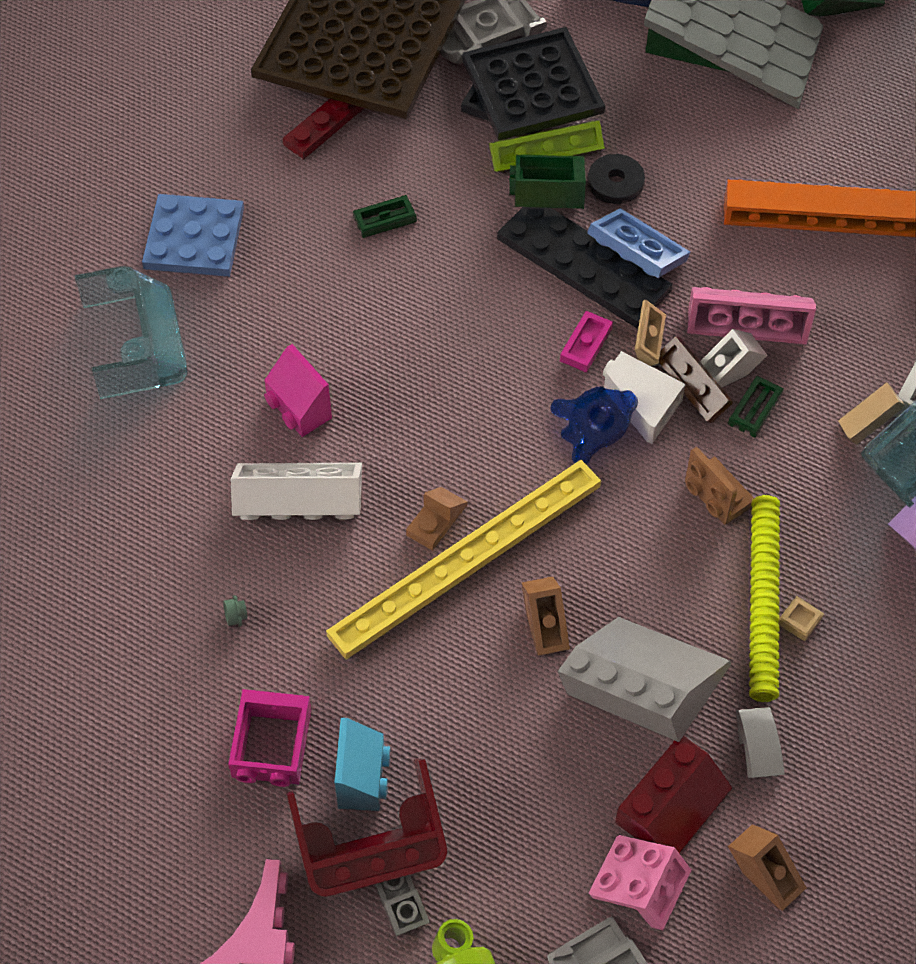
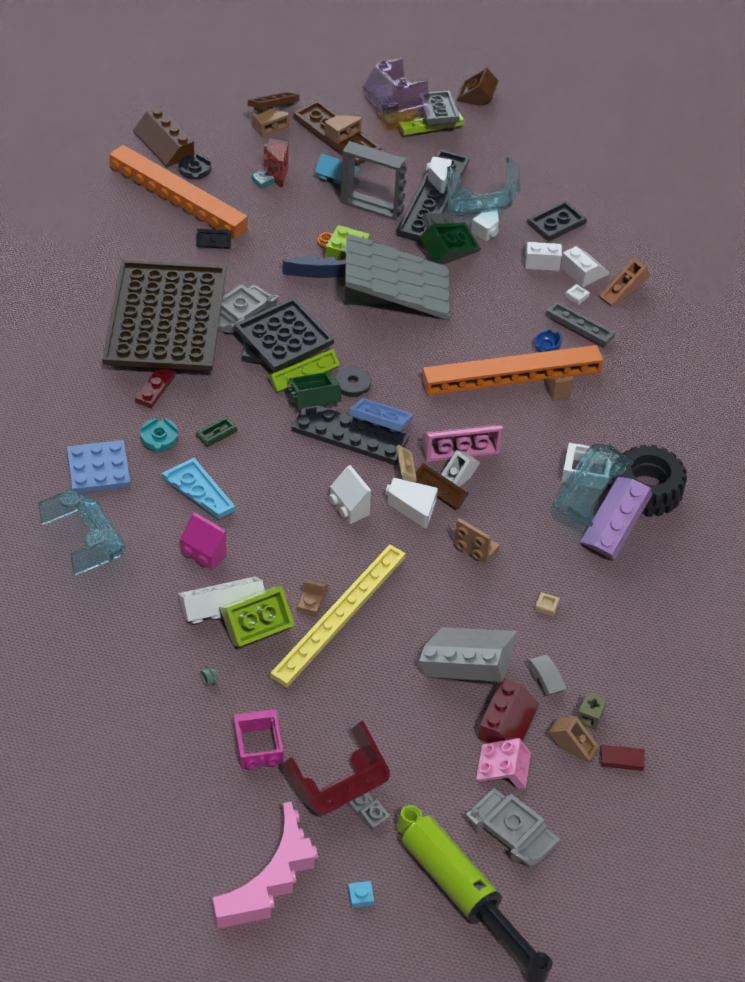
camera: 20 degrees left, 10 degrees down
(301, 216) = (159, 443): none -> teal plate
(326, 299) = (200, 487): none -> medium azure wing
(334, 533) = (257, 616): none -> lime brick
(360, 767) = (319, 741): medium azure slope -> none
(544, 366) = (350, 495): none -> white slope
(546, 615) = (399, 634): medium nougat slope -> none
(586, 341) = (370, 474): dark pink plate -> none
(595, 419) = (390, 520): clear blue tile -> none
(745, 424) = (479, 504): dark green tile -> none
(764, 599) = (523, 597): neon yellow piece -> none
(811, 837) = (592, 707): none -> olive brick
(839, 919) = (622, 757): none -> dark red tile
(871, 413) = (551, 482): tan slope -> none

